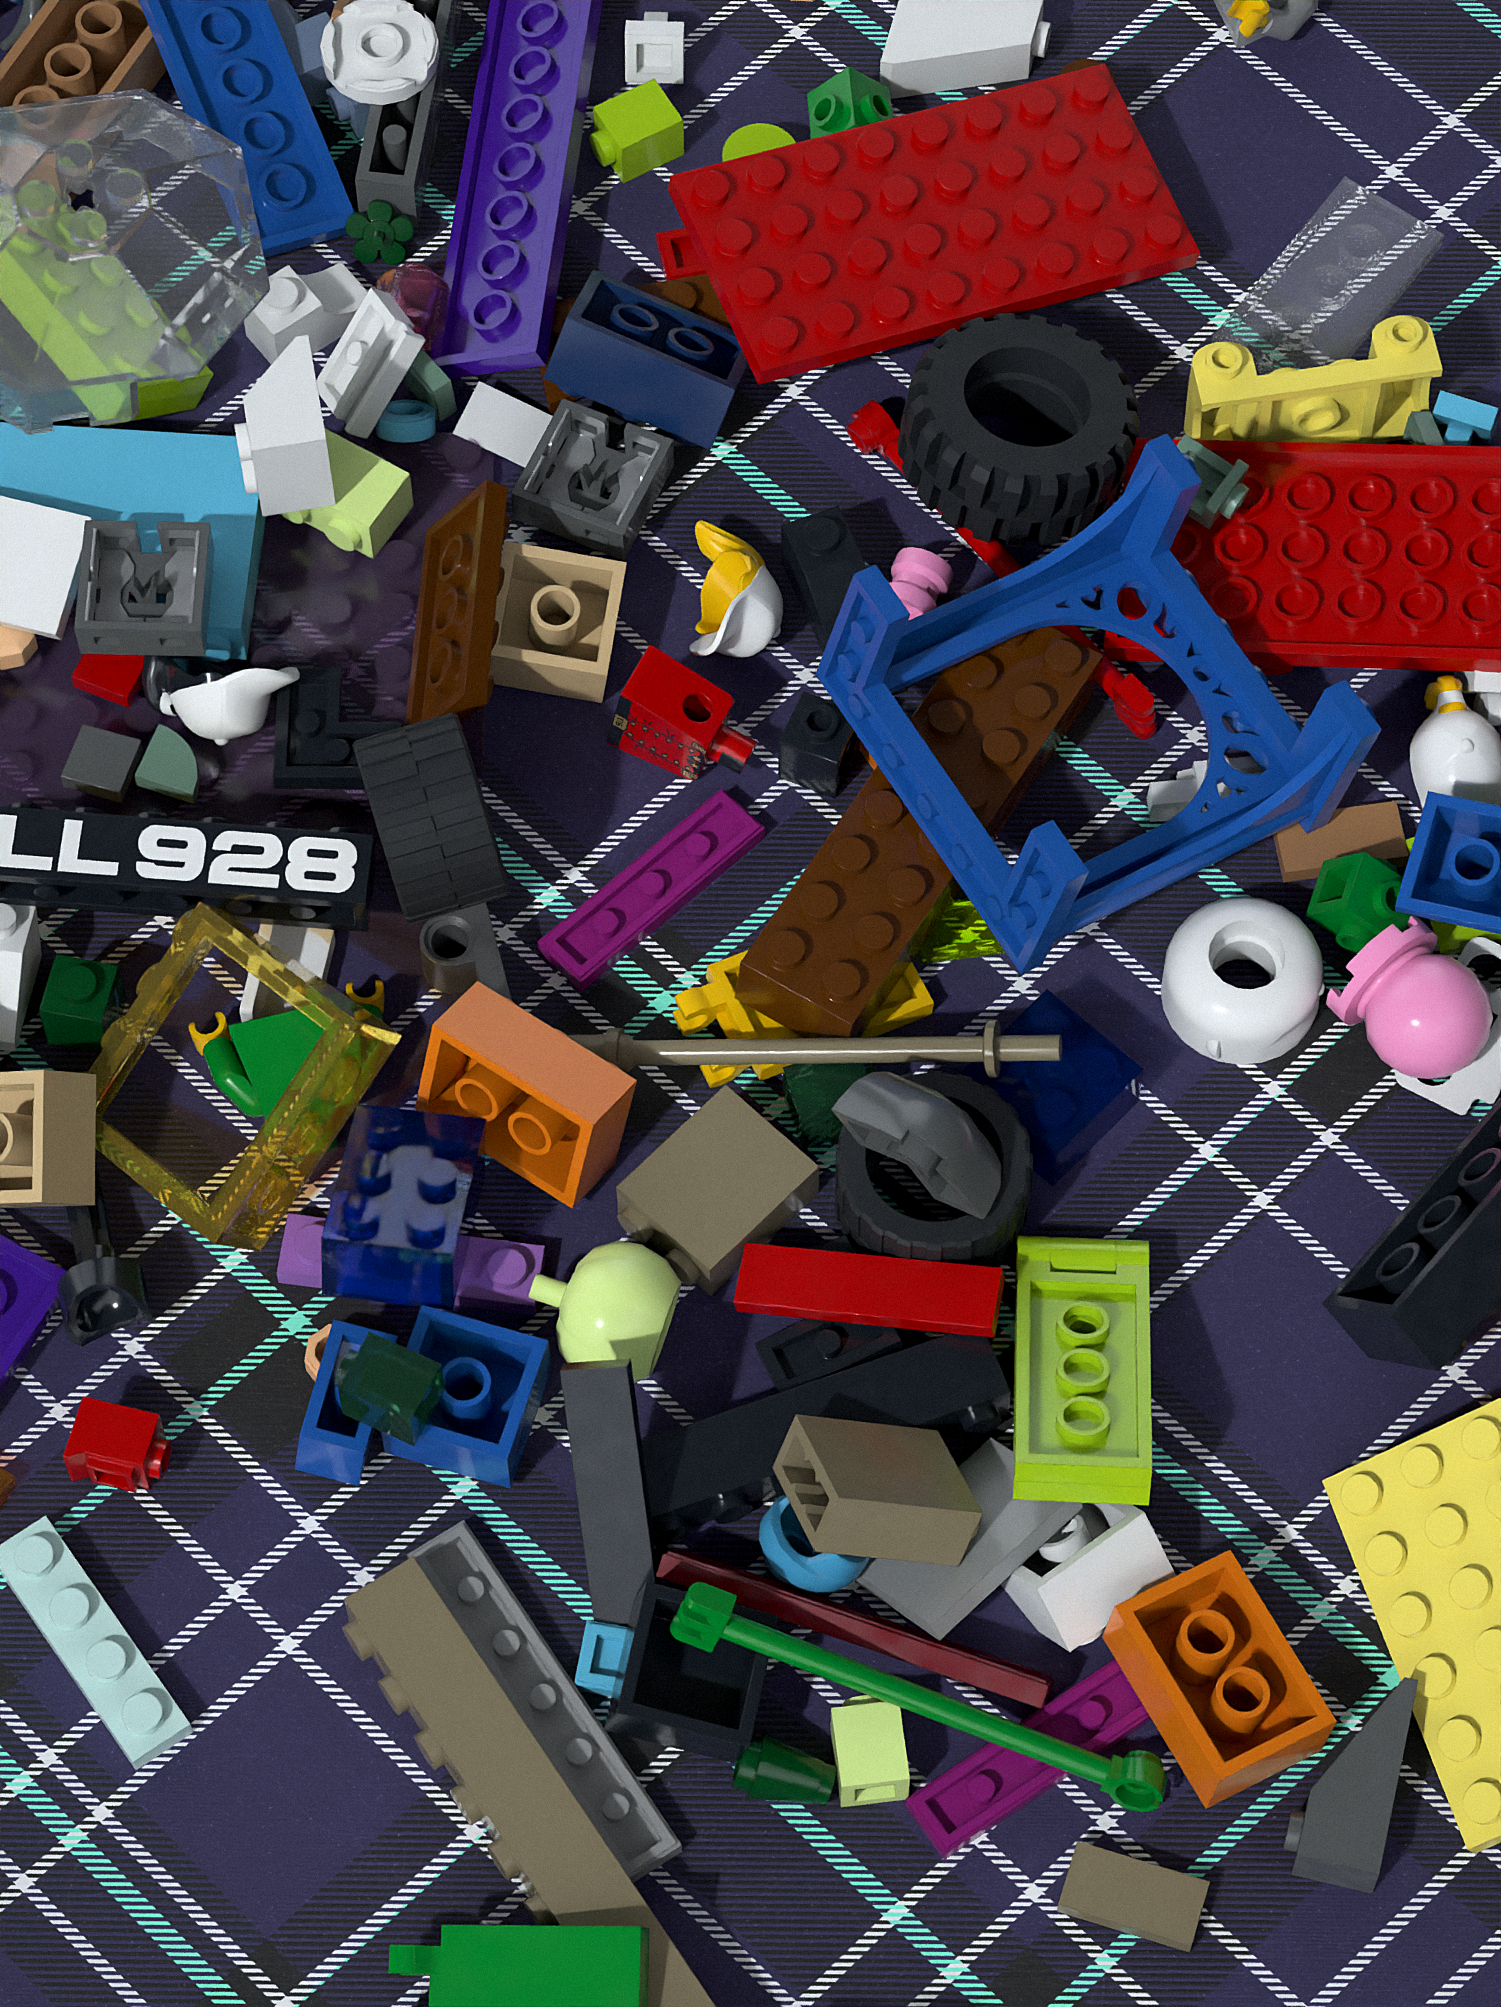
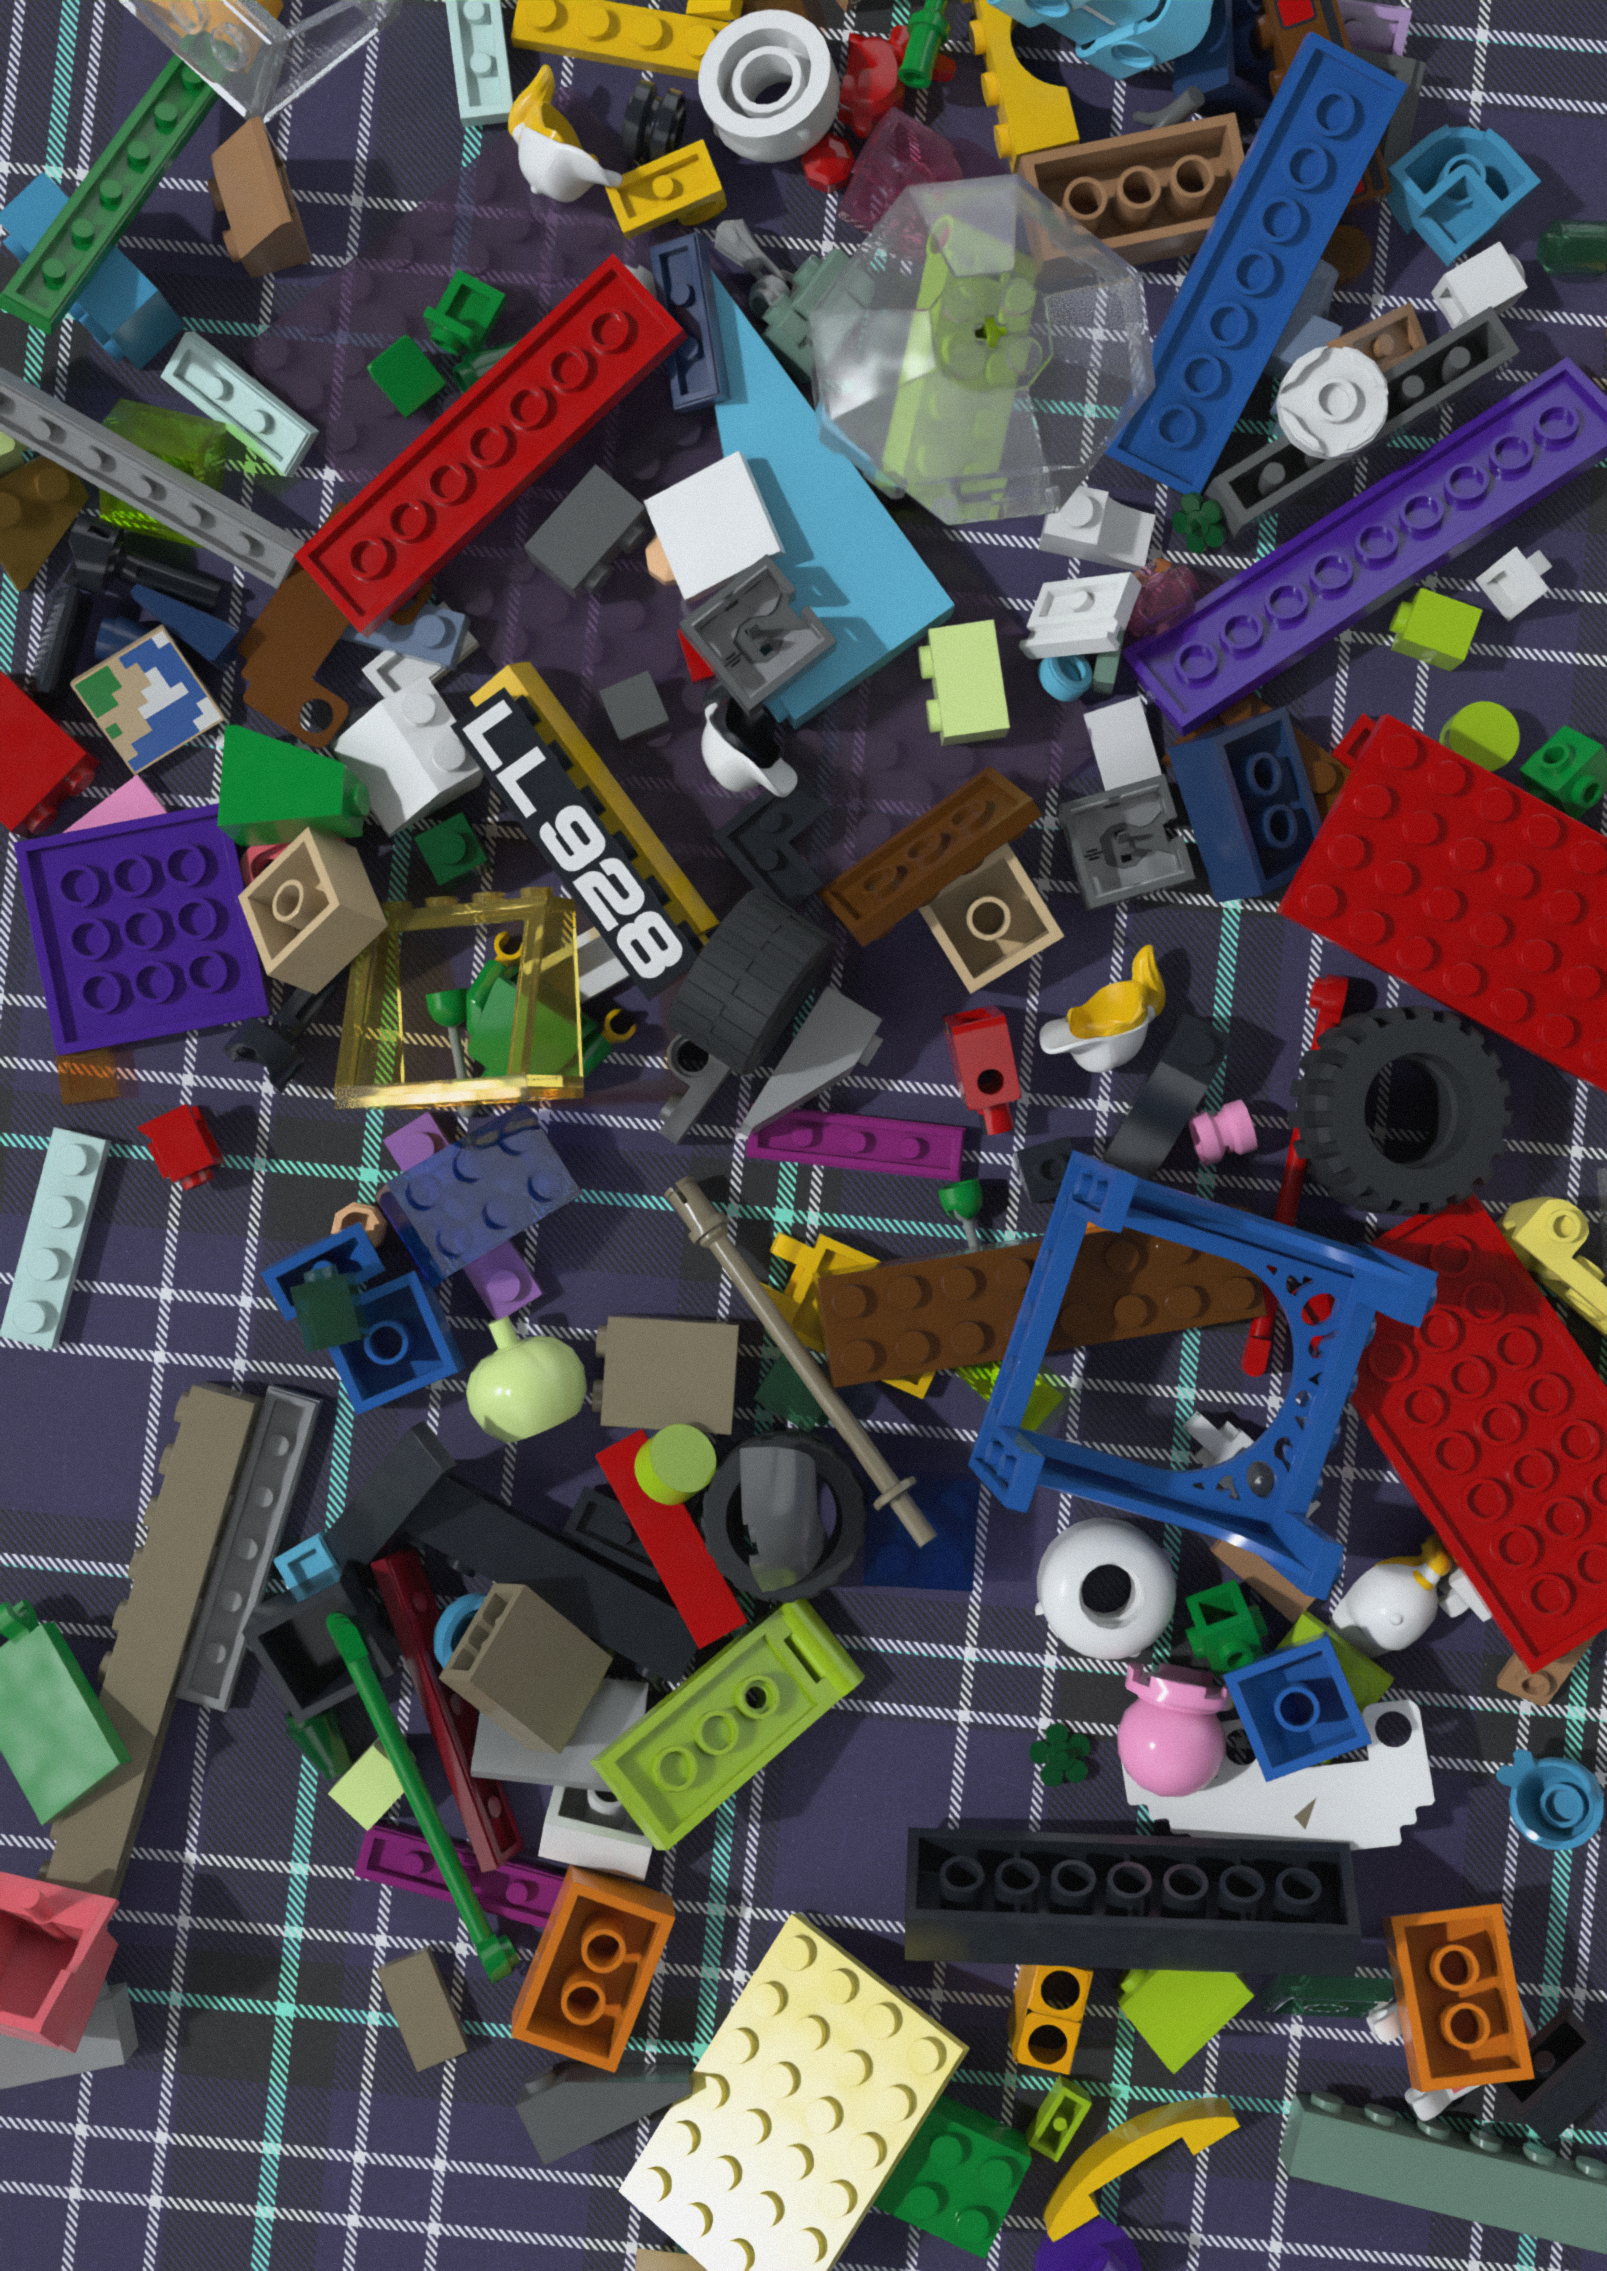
camera: 50 degrees right, 25 degrees up
(169, 766) = (670, 753): sand green tile -> none
(214, 1124) = (449, 1010): none -> green hinge
(285, 436) = (950, 631): white slope -> none
(545, 1099) = (623, 1204): orange brick -> none
(548, 846) = (820, 1056): none -> light grey slope
(784, 837) = (962, 1203): none -> green hinge
(802, 1225) = (675, 1464): none -> lime piece
(1221, 484) = (1462, 1274): sand green bracket -> none
(1369, 1142) = (1060, 1755): none -> dark green plant

